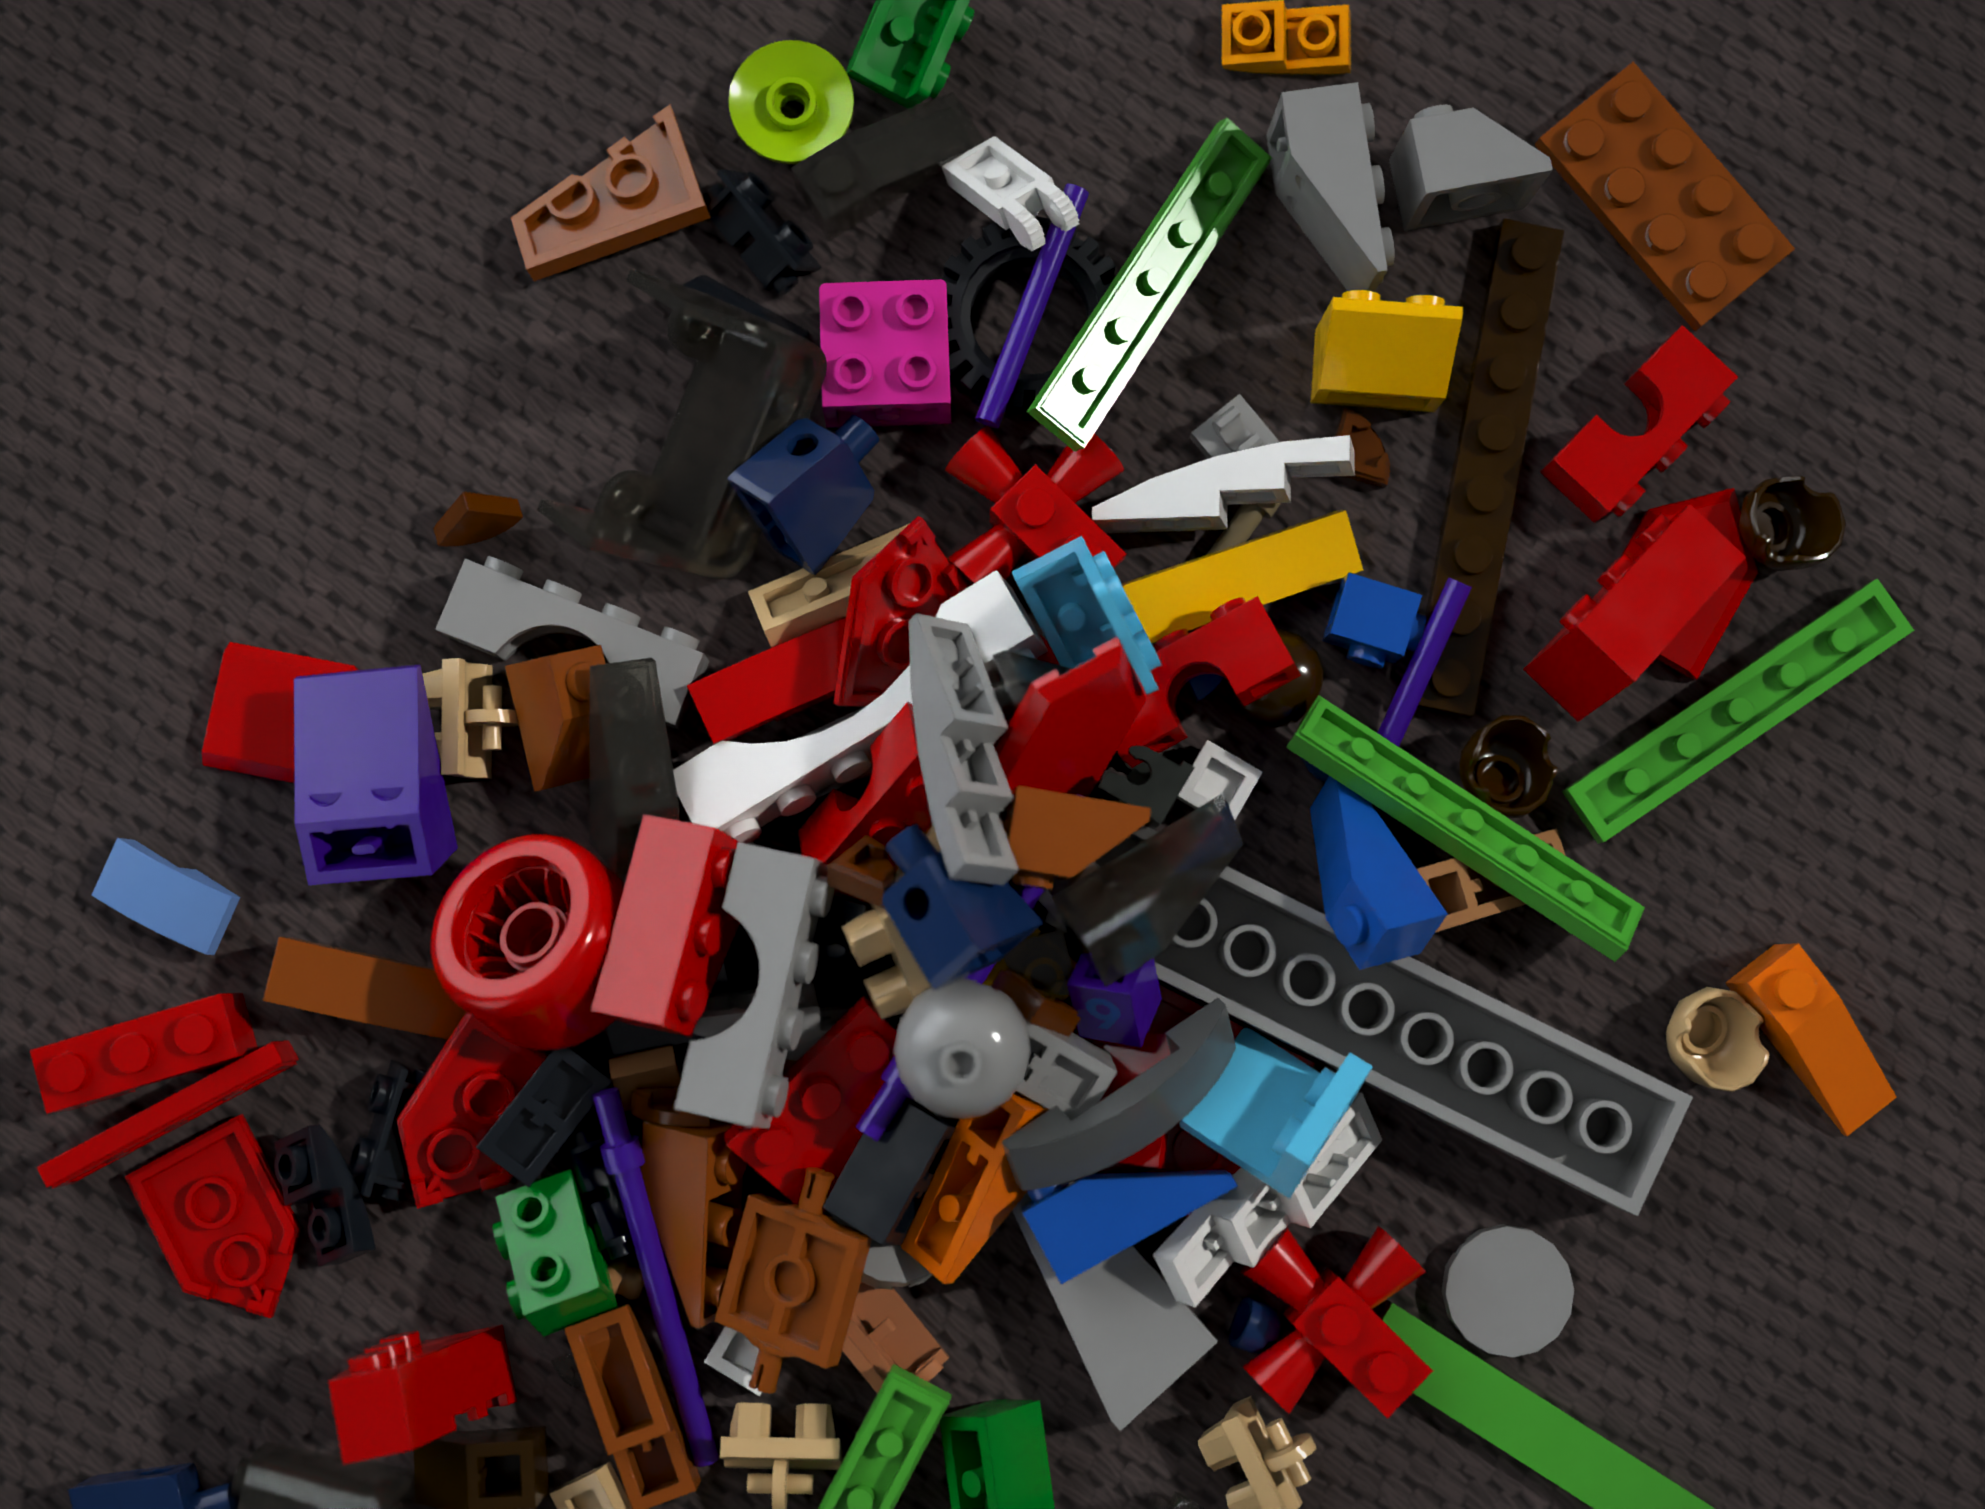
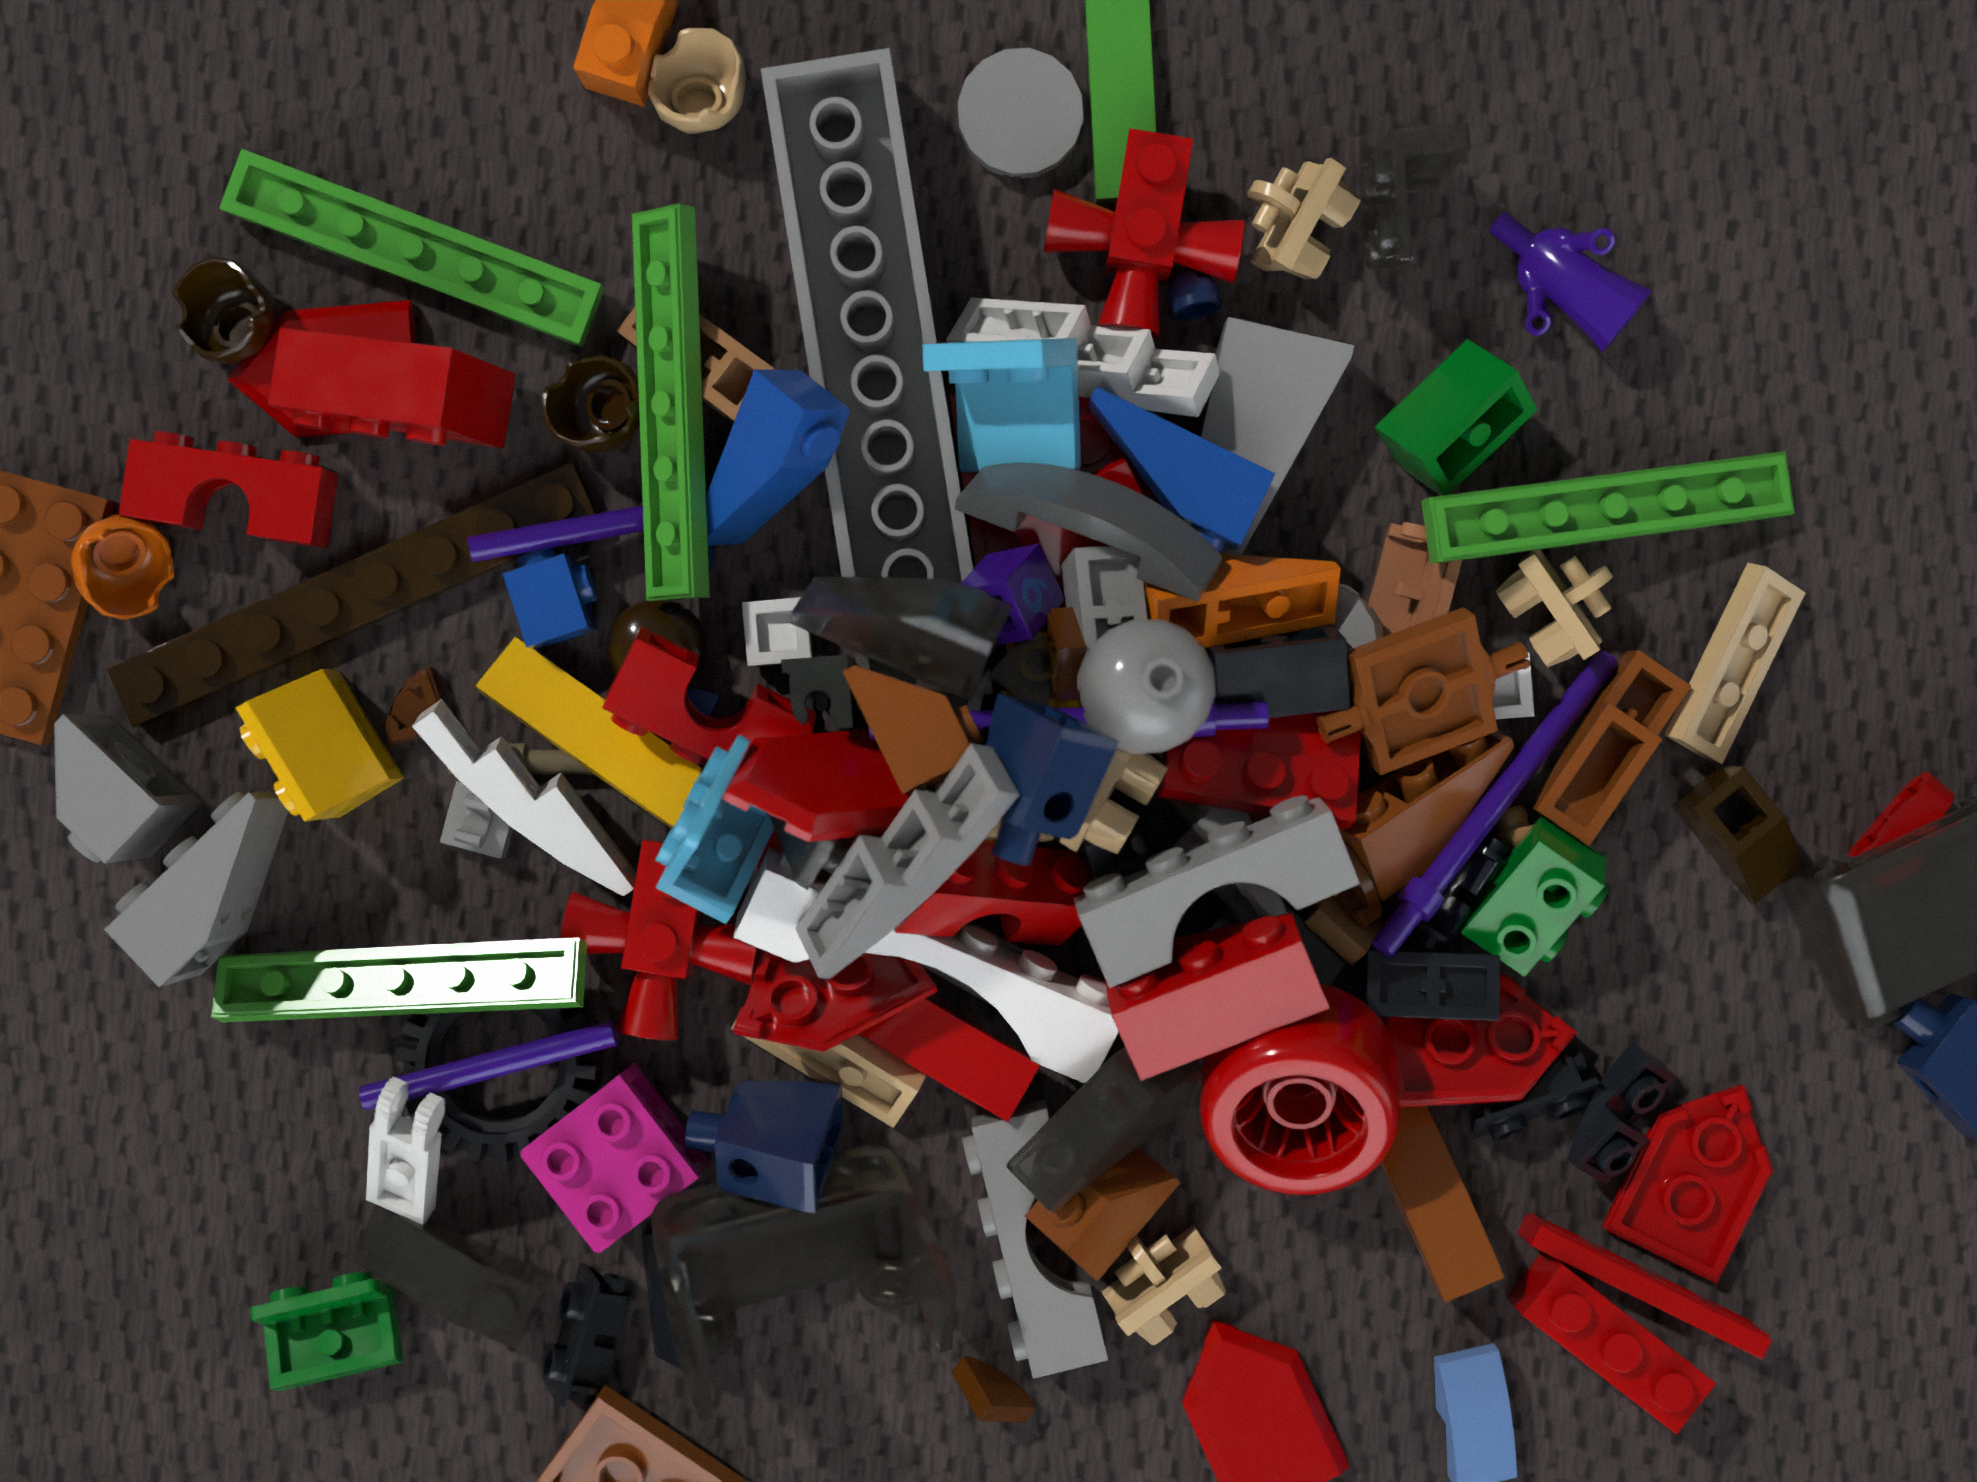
camera: 120 degrees left, 5 degrees up
(368, 777) = (1266, 1325): dark purple slope -> none
(413, 1388) = (1720, 931): red wedge -> none
(784, 74) = (437, 1410): lime dish -> none
(863, 871) = (1060, 869): reddish brown tile -> none
(1286, 41) = (108, 1013): light orange slope -> none
(1638, 299) = (122, 566): none -> orange hair

